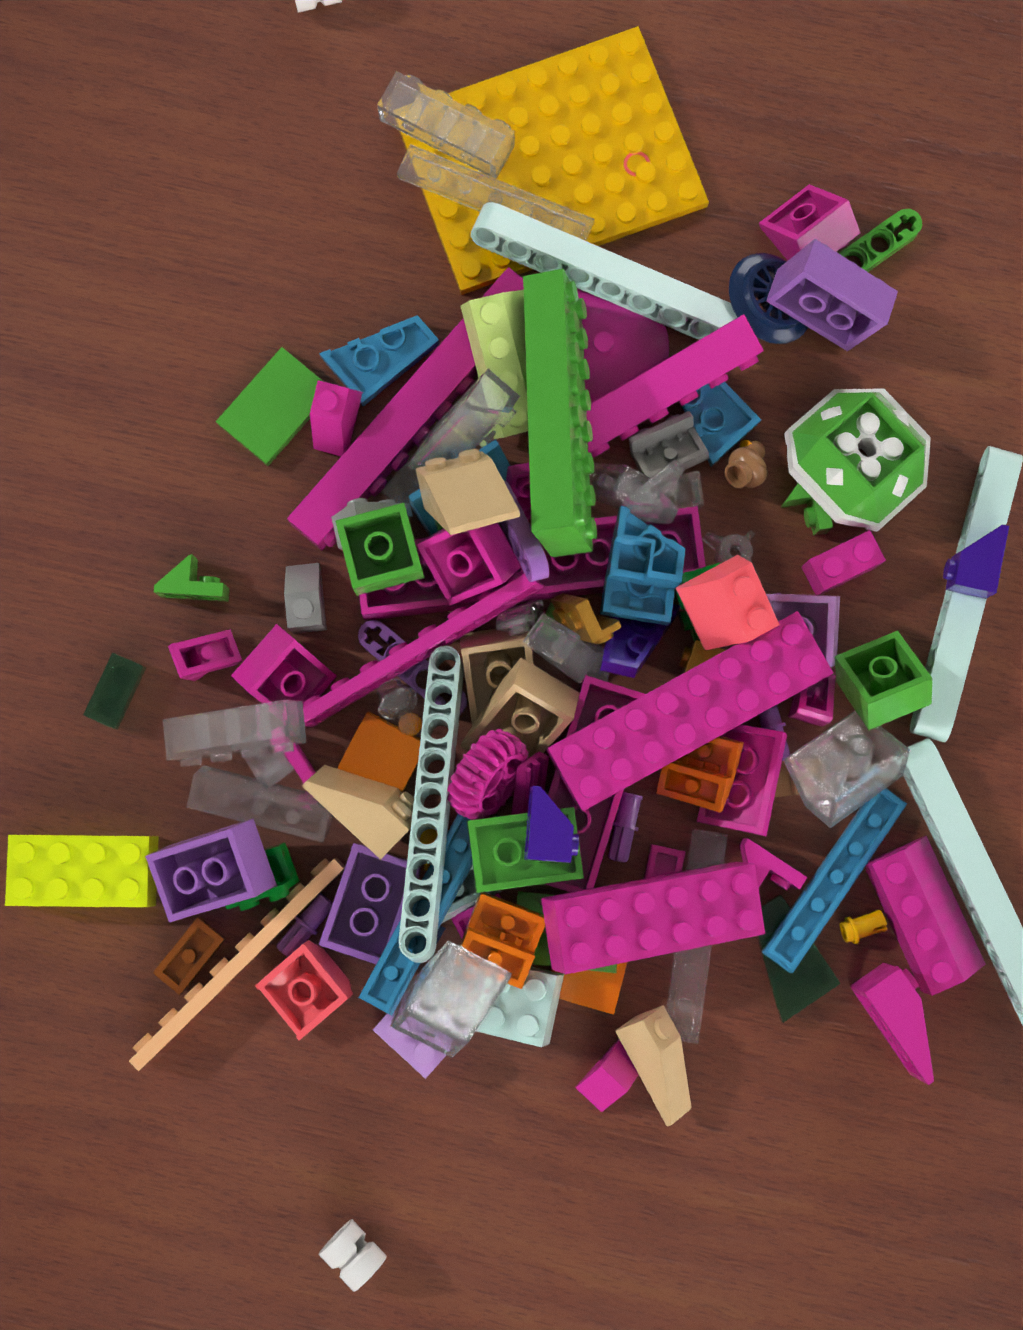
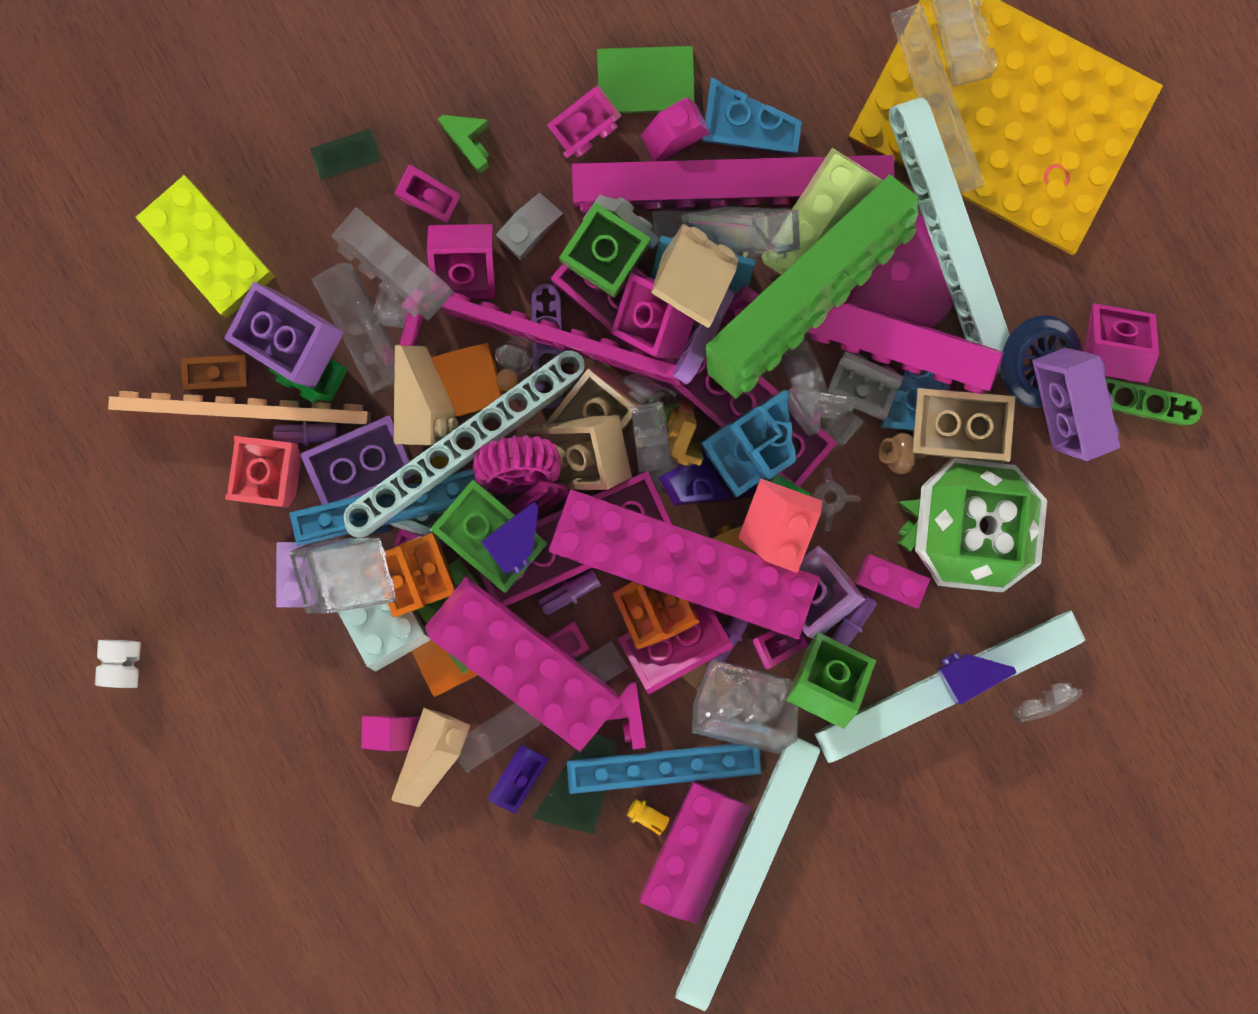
camera: 40 degrees right, 5 degrees up
(262, 480) = (583, 121): none -> dark pink bracket
(740, 1005) = (518, 778): none -> dark purple plate
(770, 397) = (964, 425): none -> tan slope
(848, 622) = (854, 621): none -> medium lavender axle
(898, 1013) = (608, 886): dark pink slope -> none

